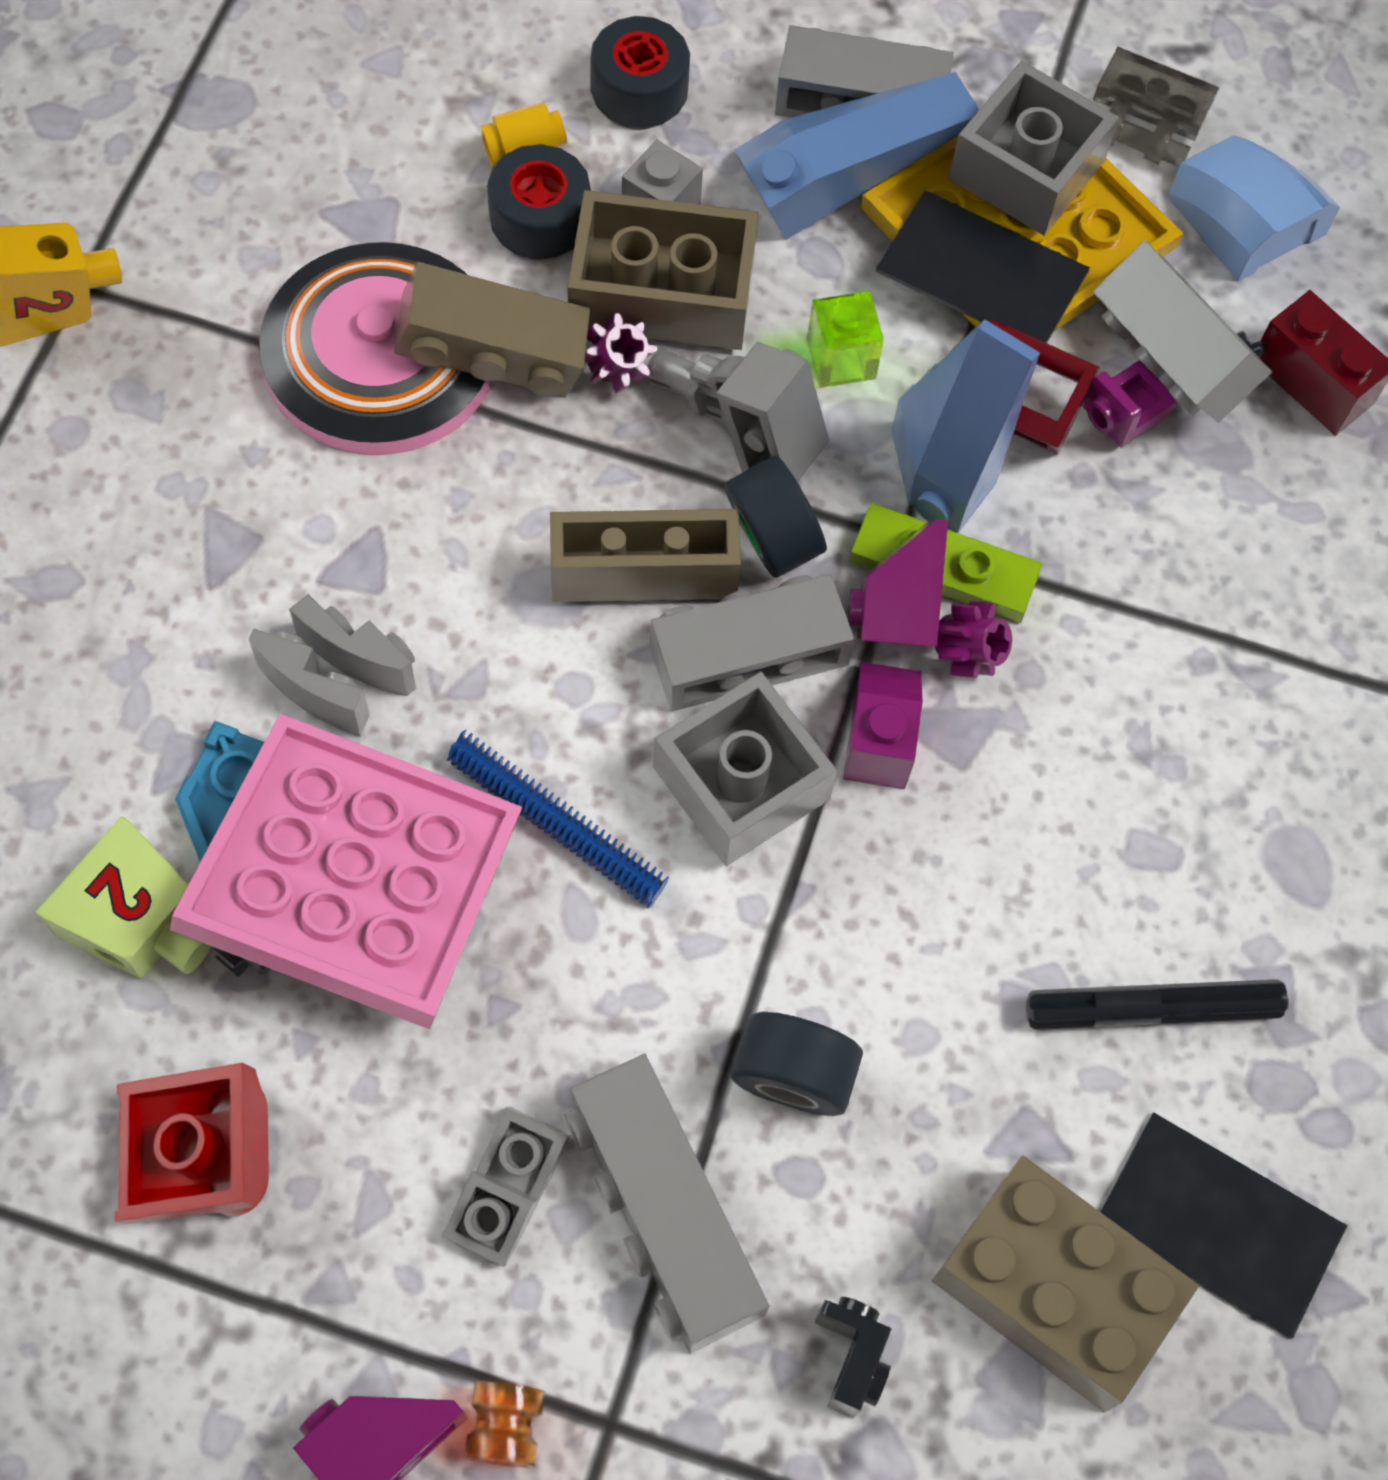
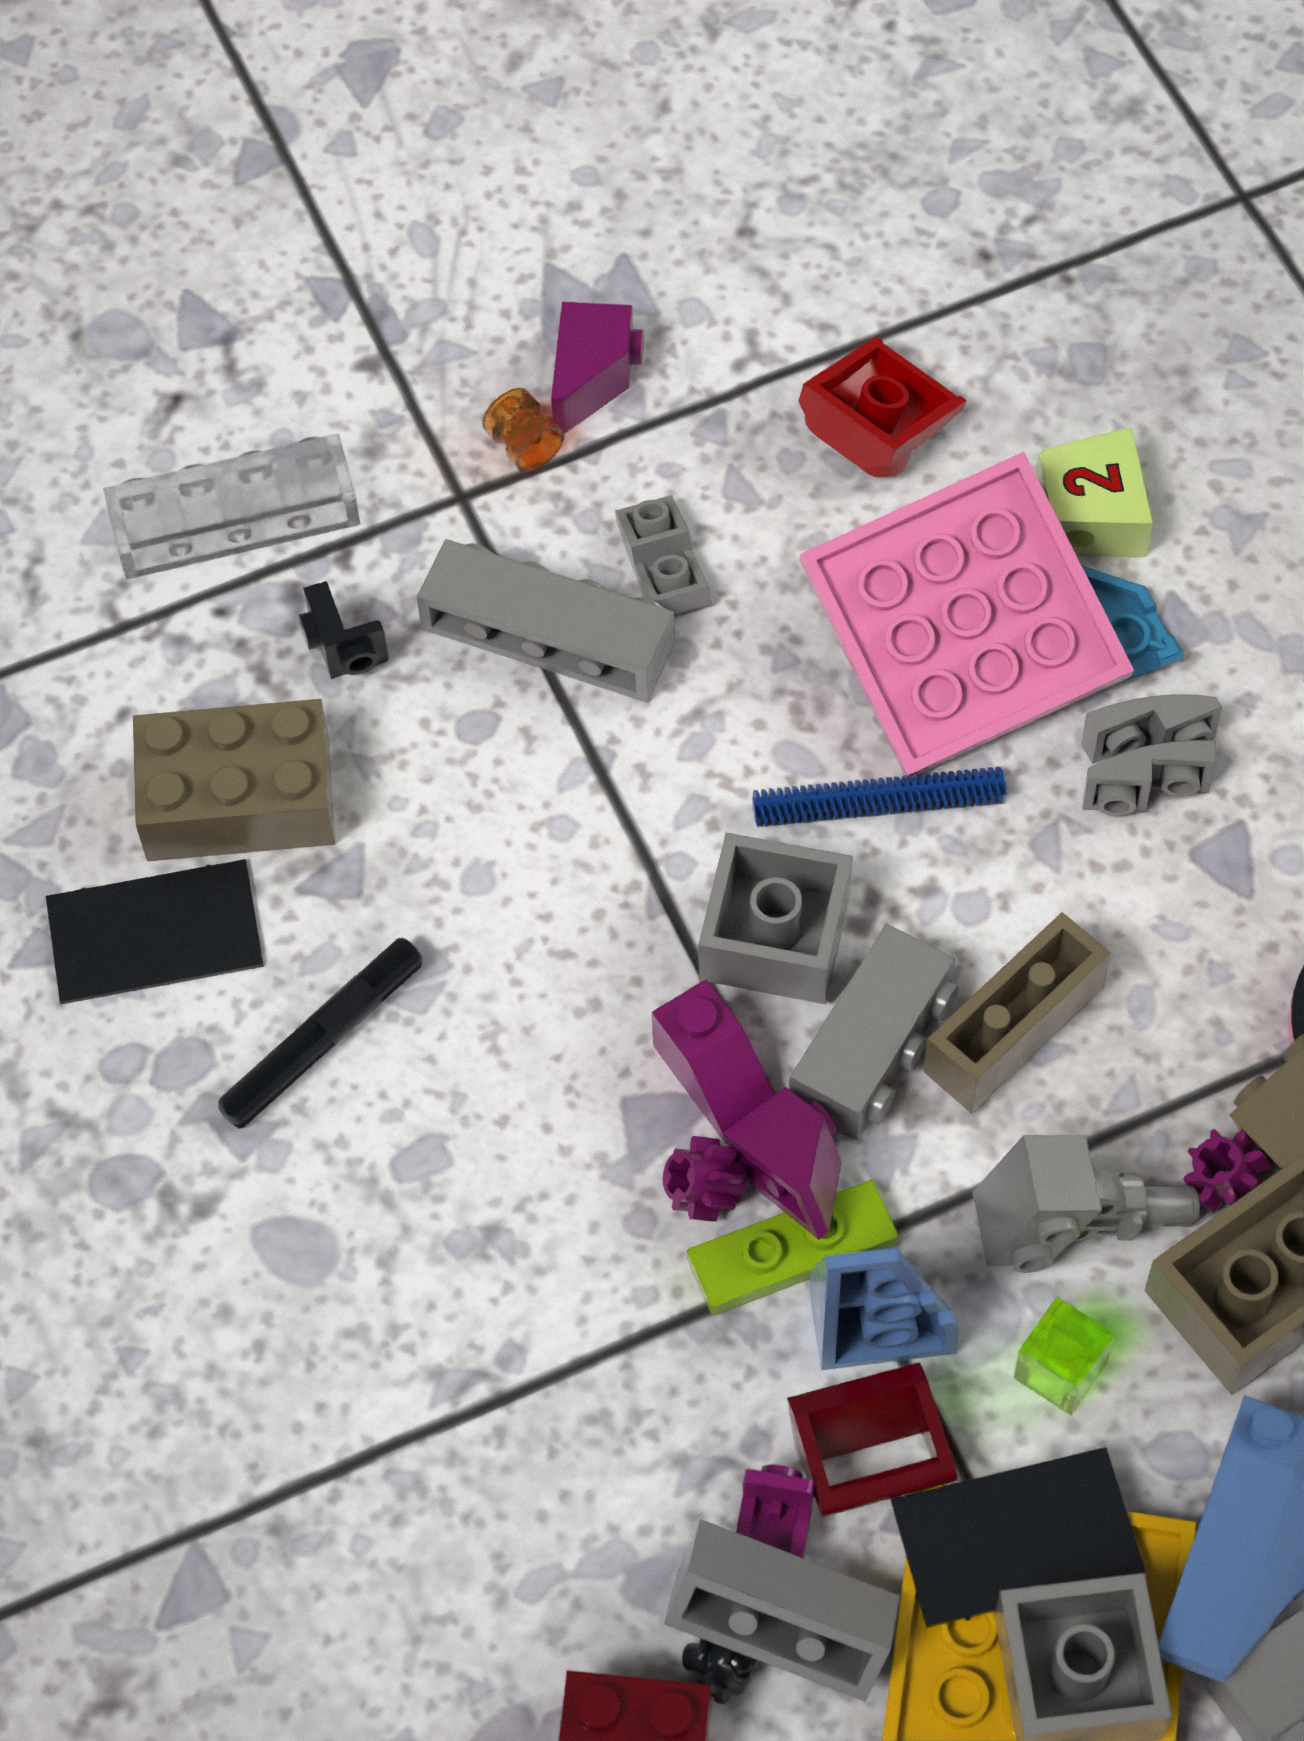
camera: 145 degrees right, 5 degrees down
(776, 516) = (951, 1132): black wheel -> none
(797, 1063) = (540, 759): black wheel -> none

